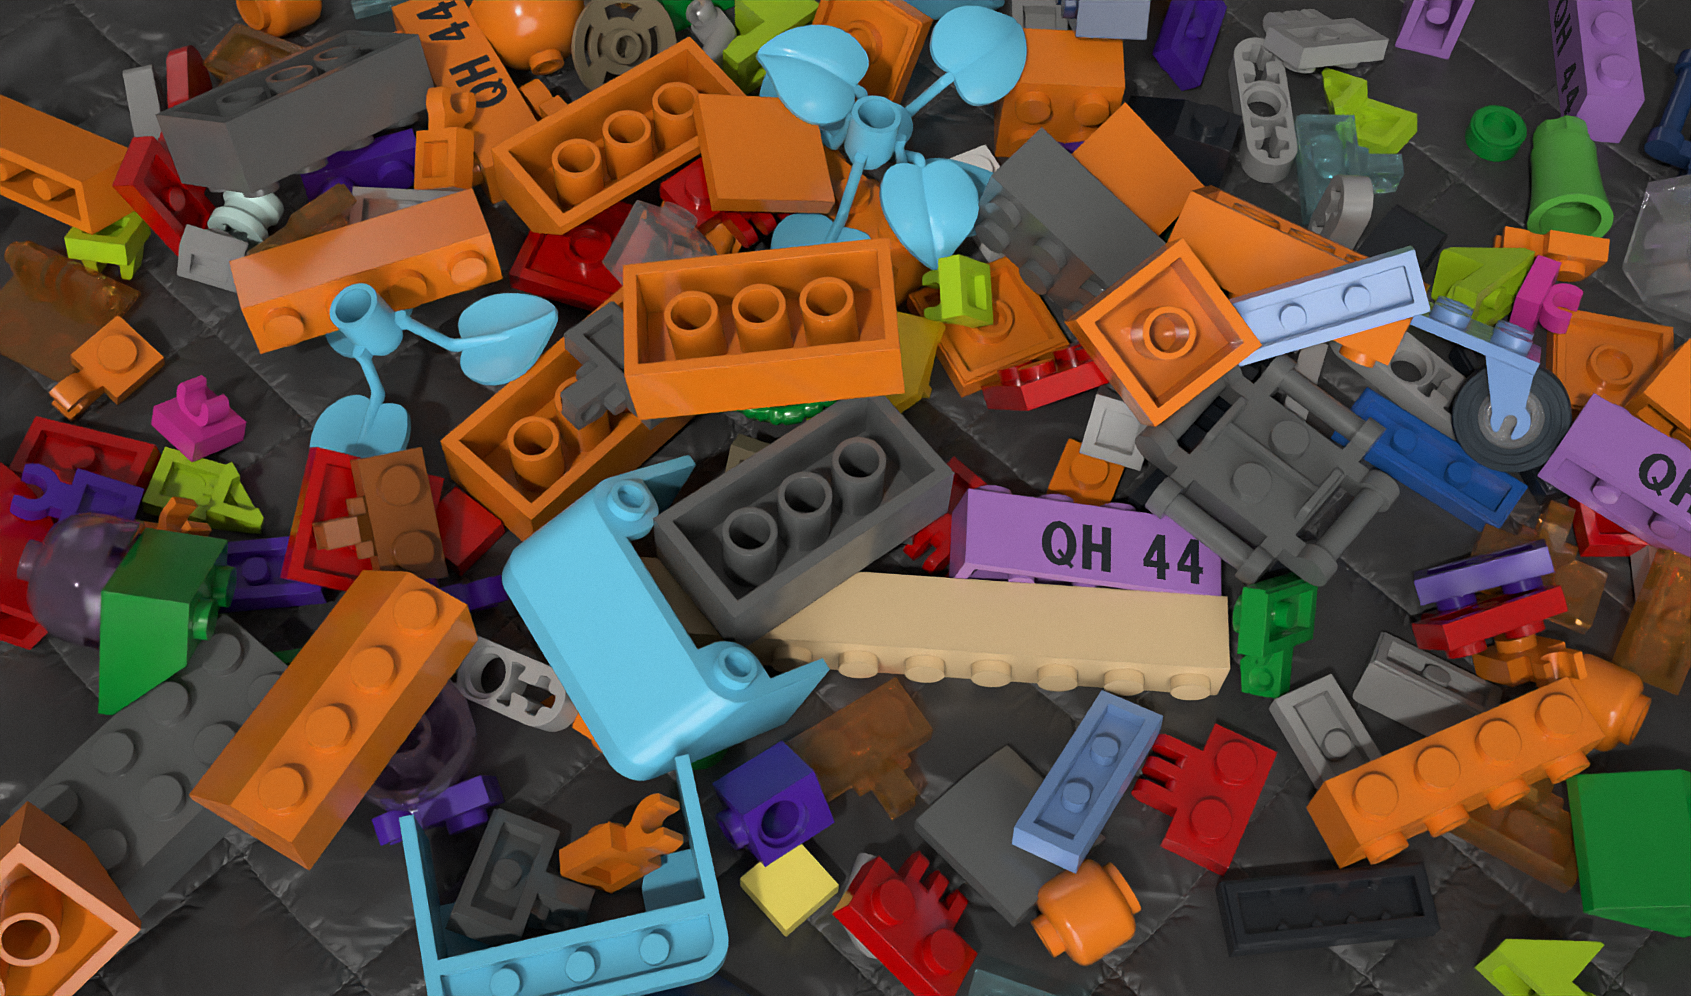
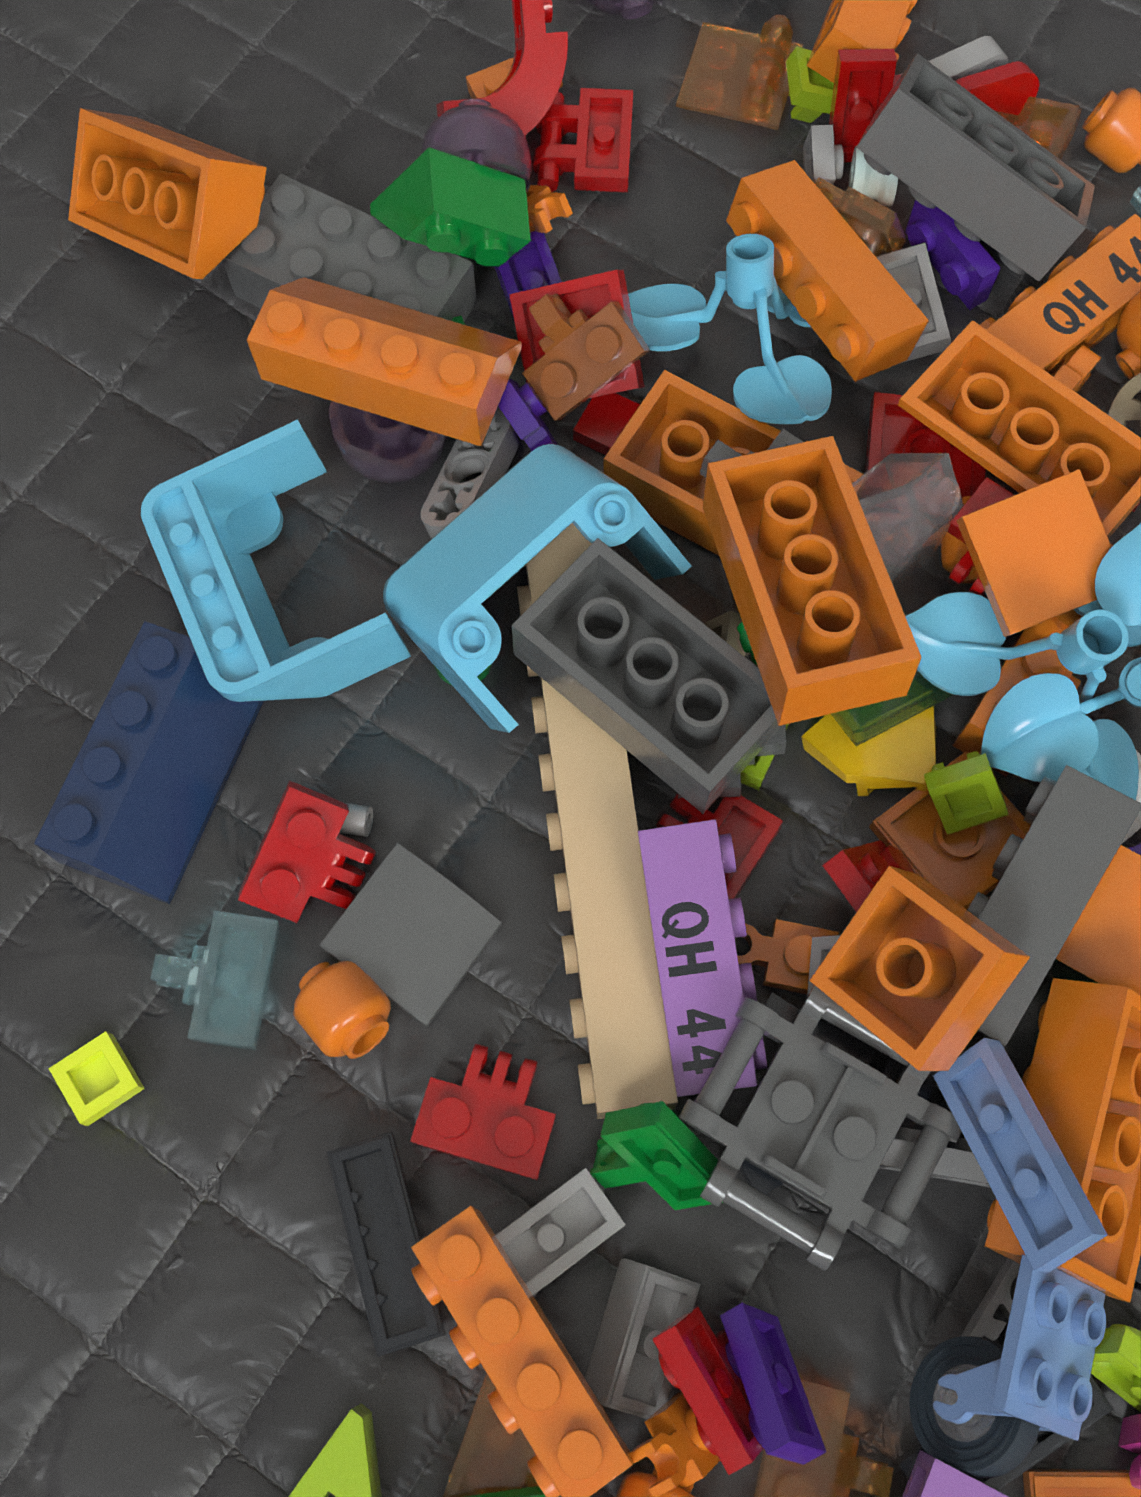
camera: 85 degrees right, 10 degrees up
(85, 494) = (548, 139): dark purple plate -> none
(109, 363) = (700, 130): orange plate -> none
(198, 420) = (662, 204): dark pink tile -> none
(211, 485) = (601, 227): lime slope -> none
(446, 149) = (987, 294): orange plate -> none
(458, 808) = (349, 482): dark purple plate -> none
(515, 885) = (293, 538): dark grey hinge -> none
(621, 854) = (330, 602): orange plate -> none
(771, 804) = (394, 721): dark purple brick -> none
(789, 888) = (337, 756): light yellow tile -> none
(867, 747) = (472, 796): clear orange hinge -> none
(1087, 781) = (465, 993): medium blue plate -> none
(1436, 465) = (918, 1317): blue tile -> none

